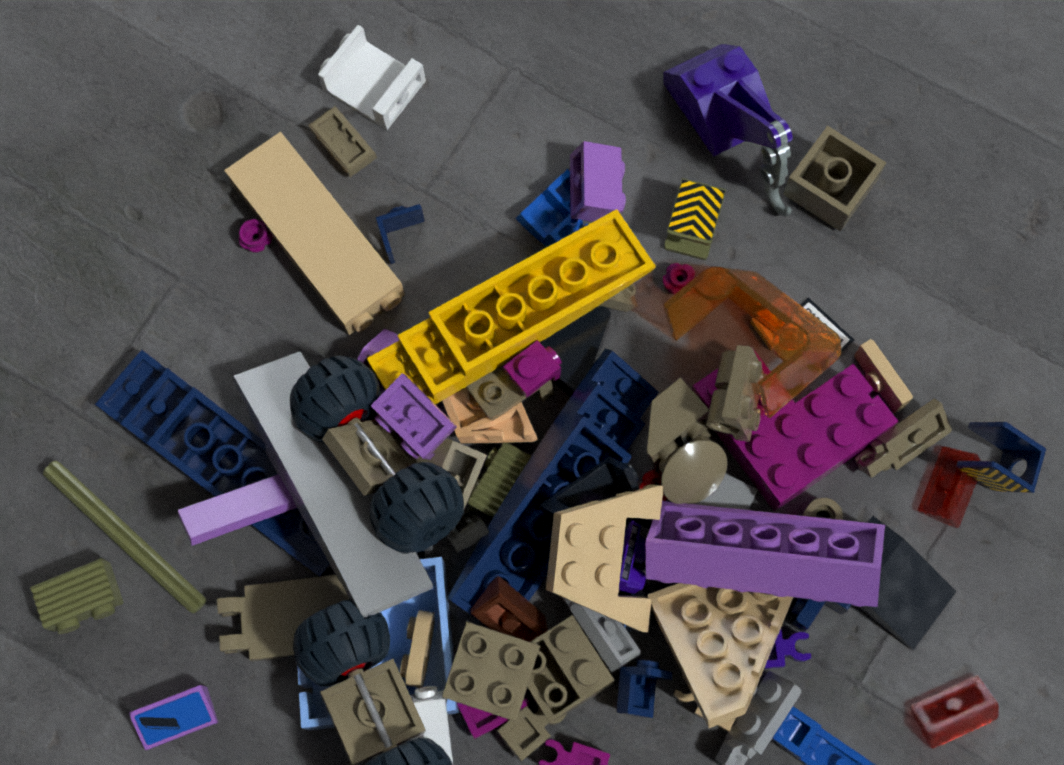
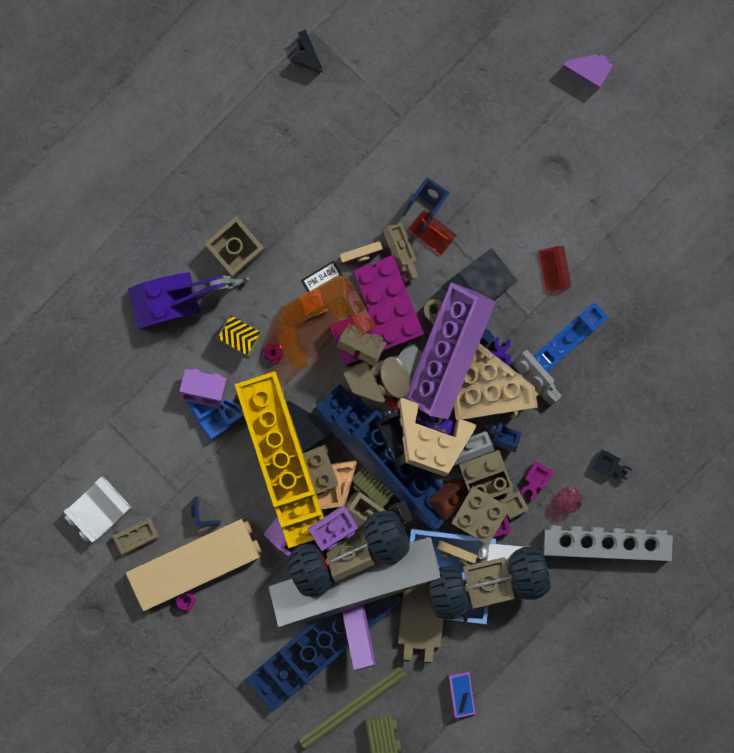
camera: 75 degrees left, 15 degrees up
(533, 368) = (316, 453): magenta bracket -> none

